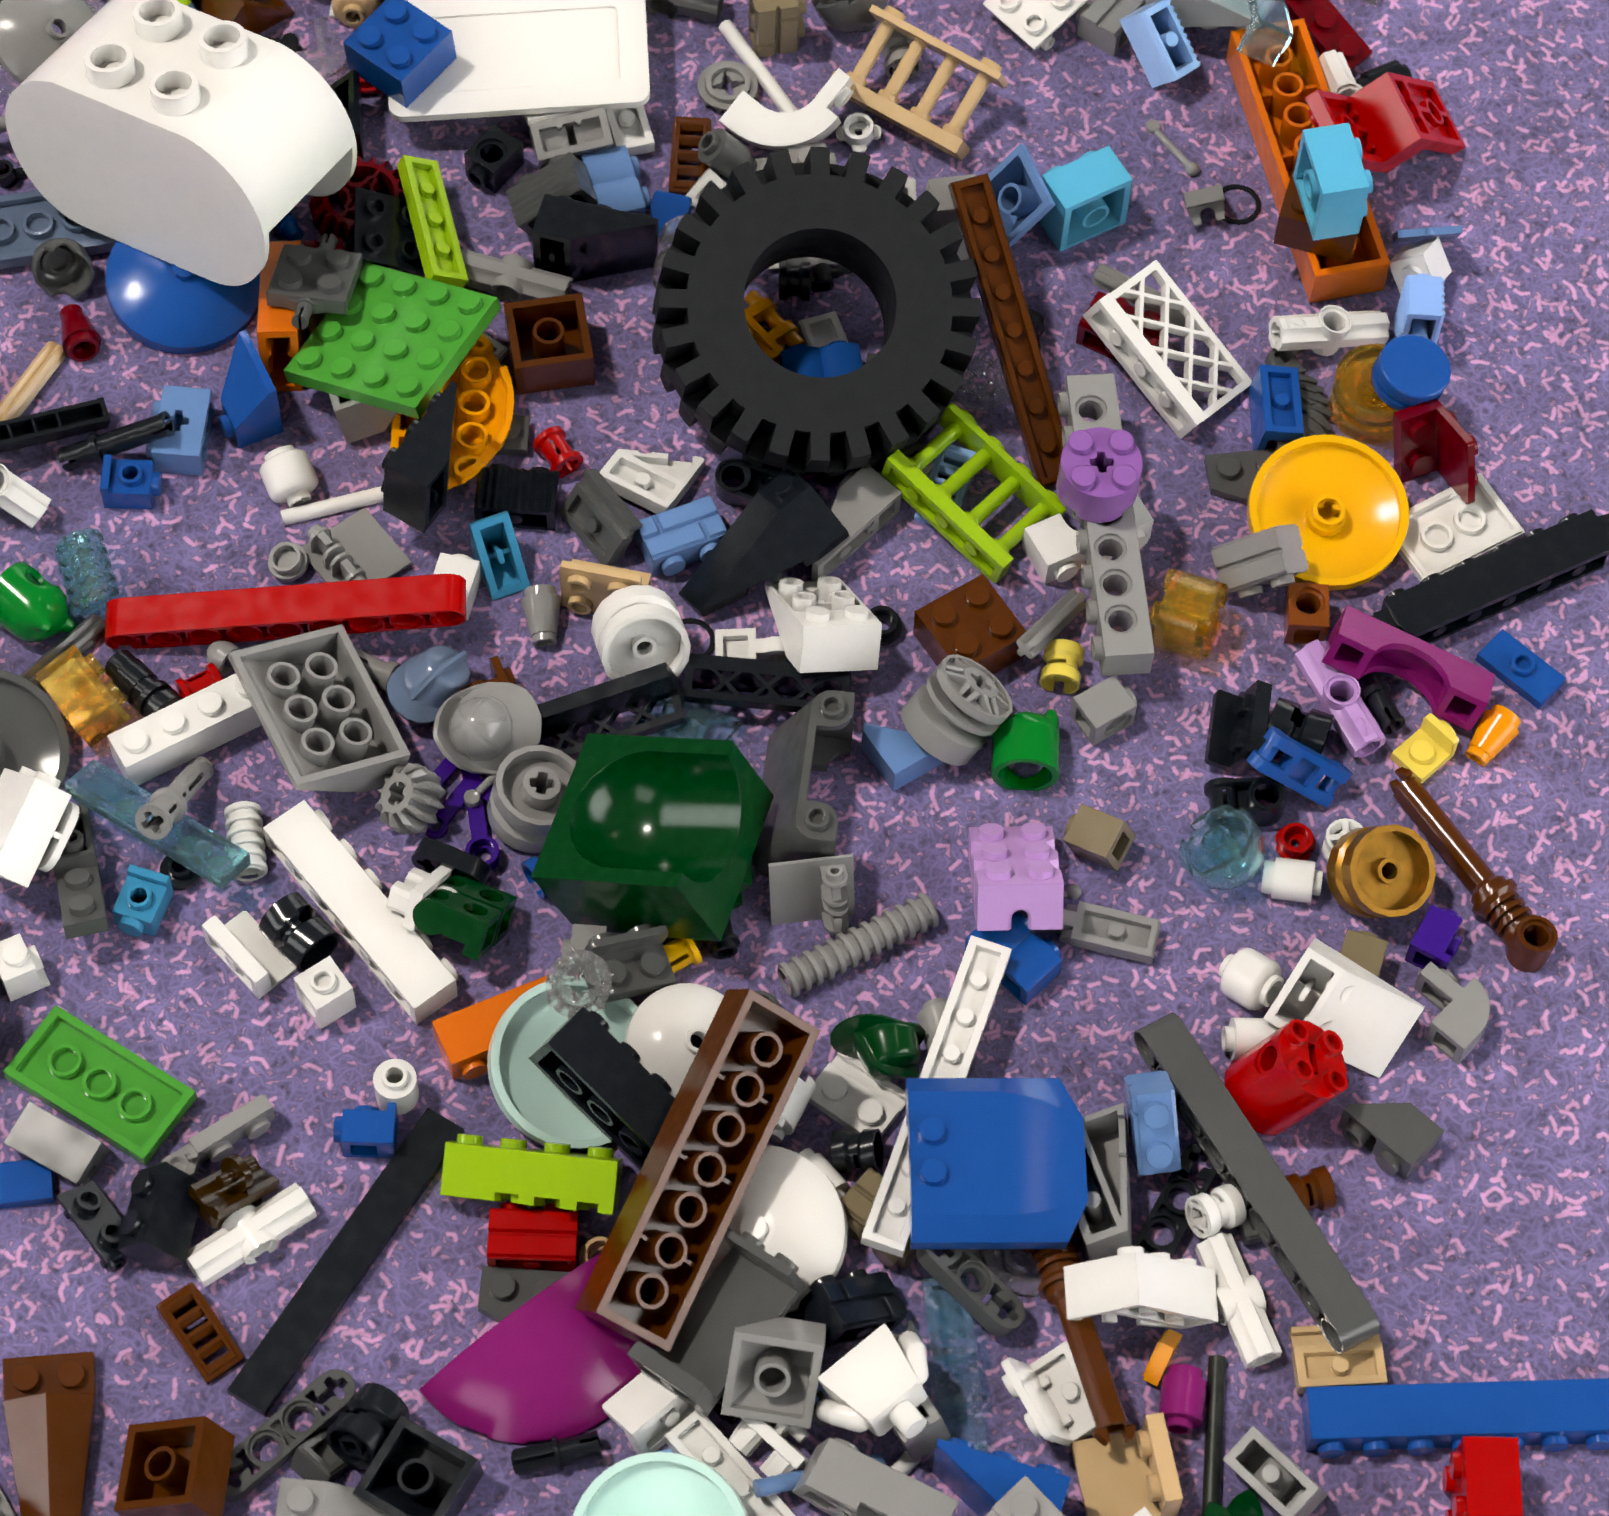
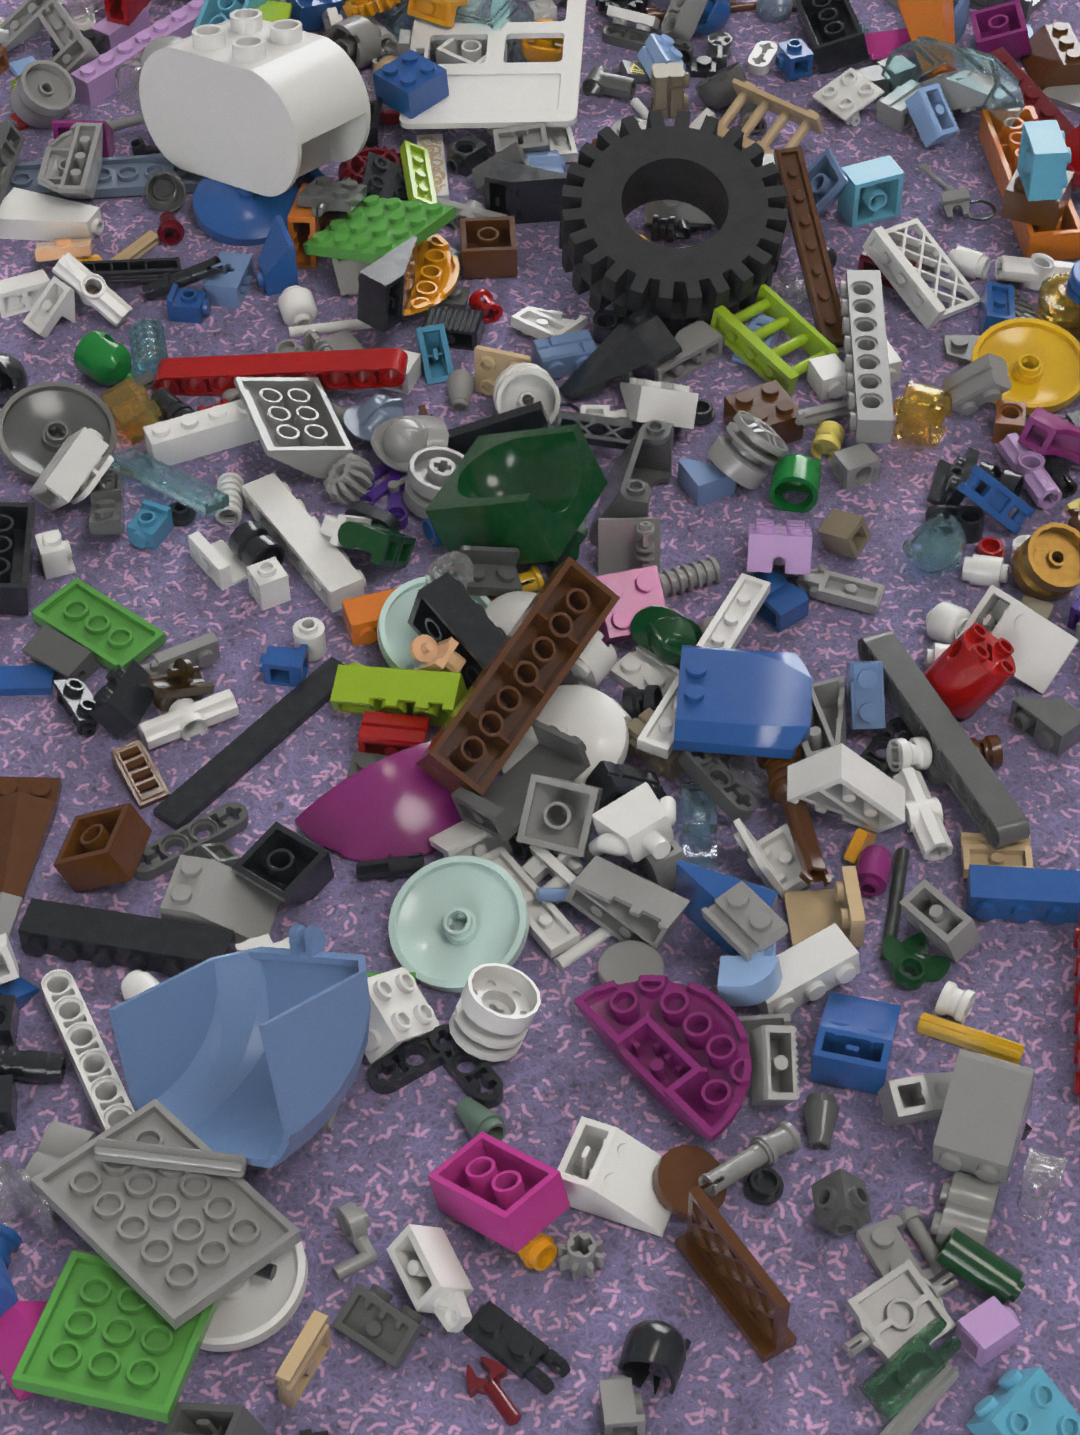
camera: 10 degrees right, 15 degrees down
(170, 803) = (178, 463): light grey pin -> none
(365, 1424) = (242, 832): black wheel -> none
(439, 143) = (435, 147): none -> tile
(578, 1124) = (435, 655): none -> light nougat hips
(600, 518) = (508, 333): dark grey plate -> none
(823, 986) = (636, 590): none -> brick
(1099, 473) = (863, 314): medium lavender brick -> none
(1230, 315) = (970, 262): none -> white brick

